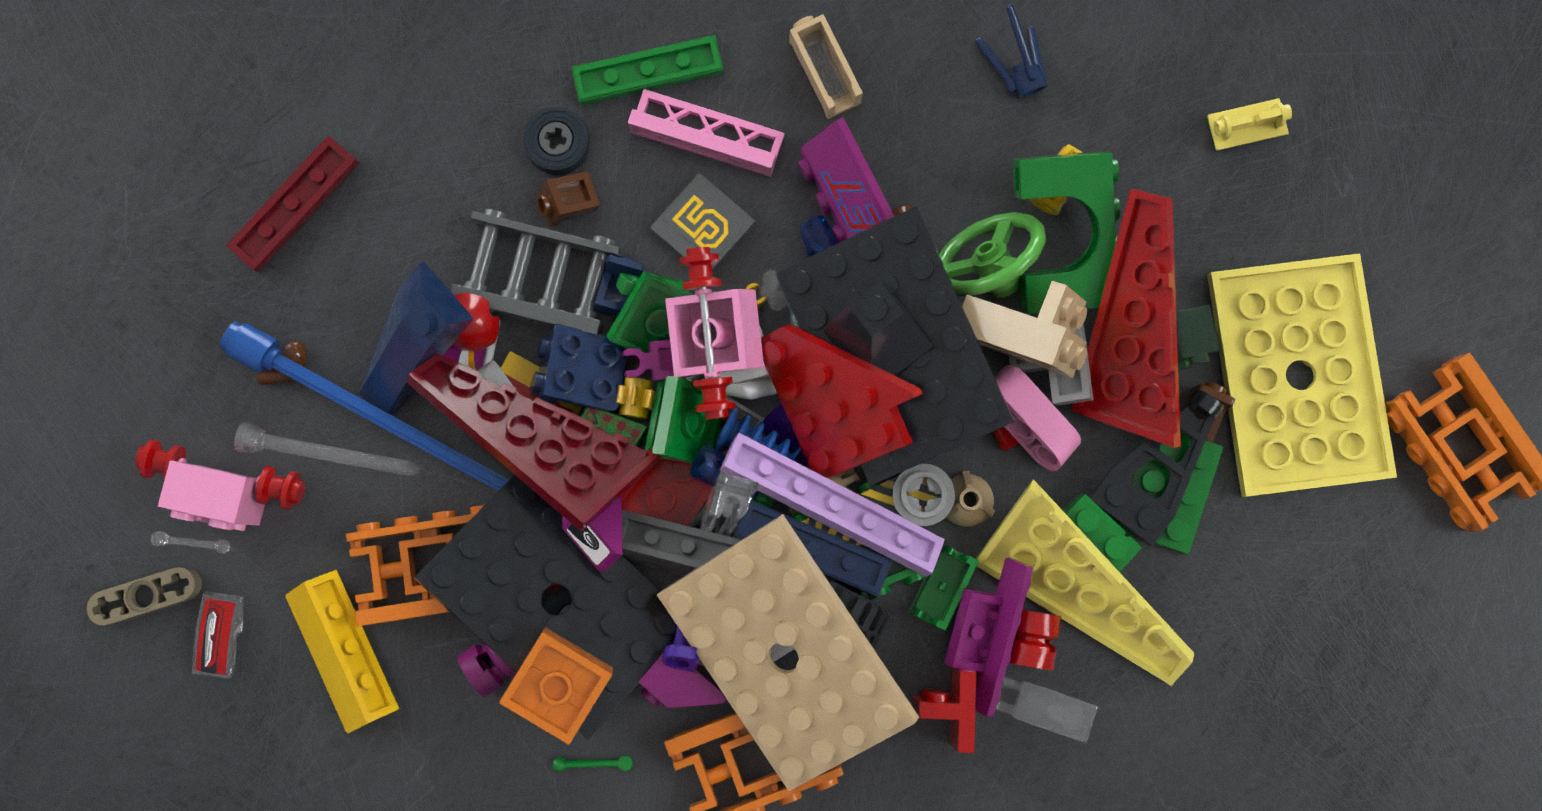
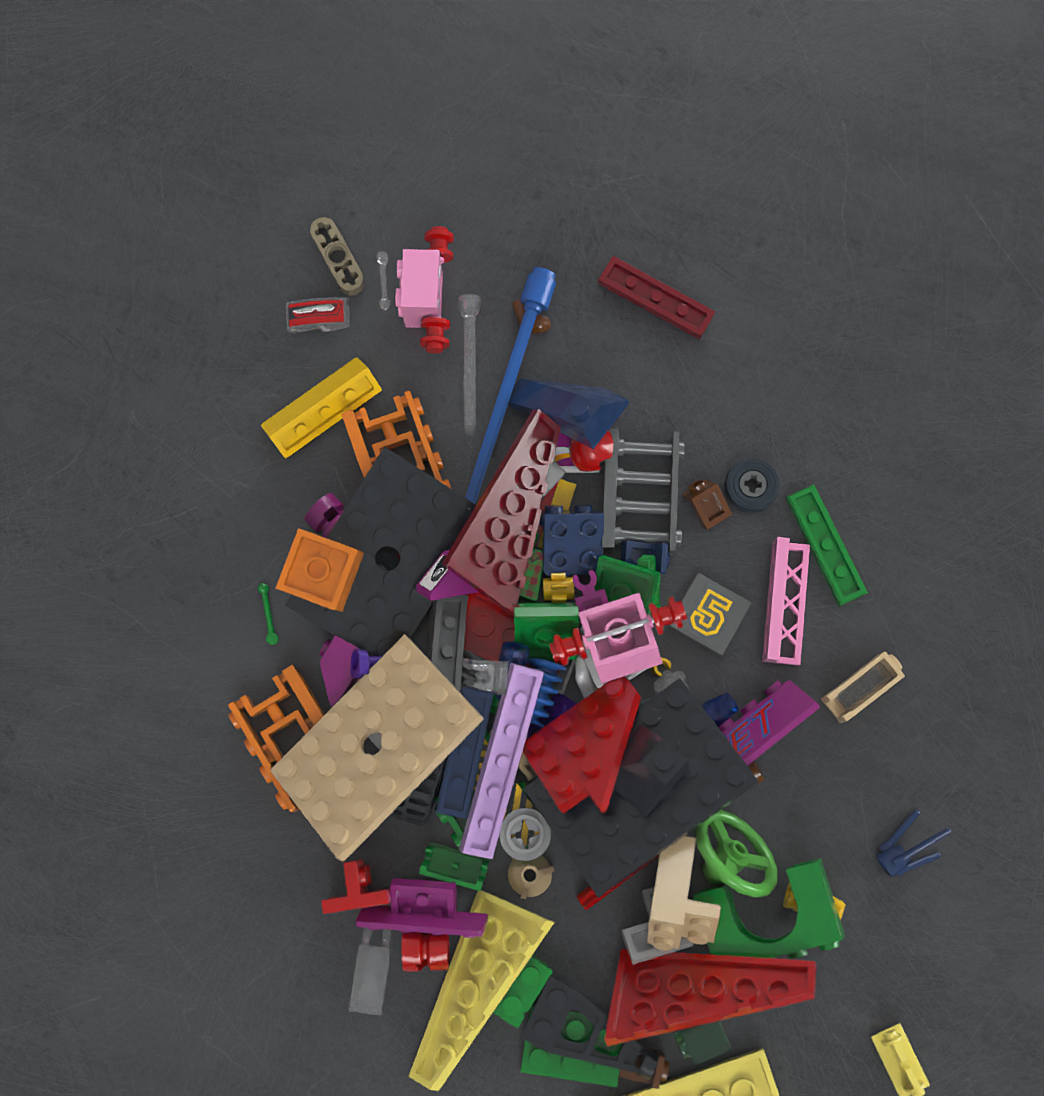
camera: 80 degrees right, 5 degrees down
(1037, 422) = (606, 918): bright pink beam -> none

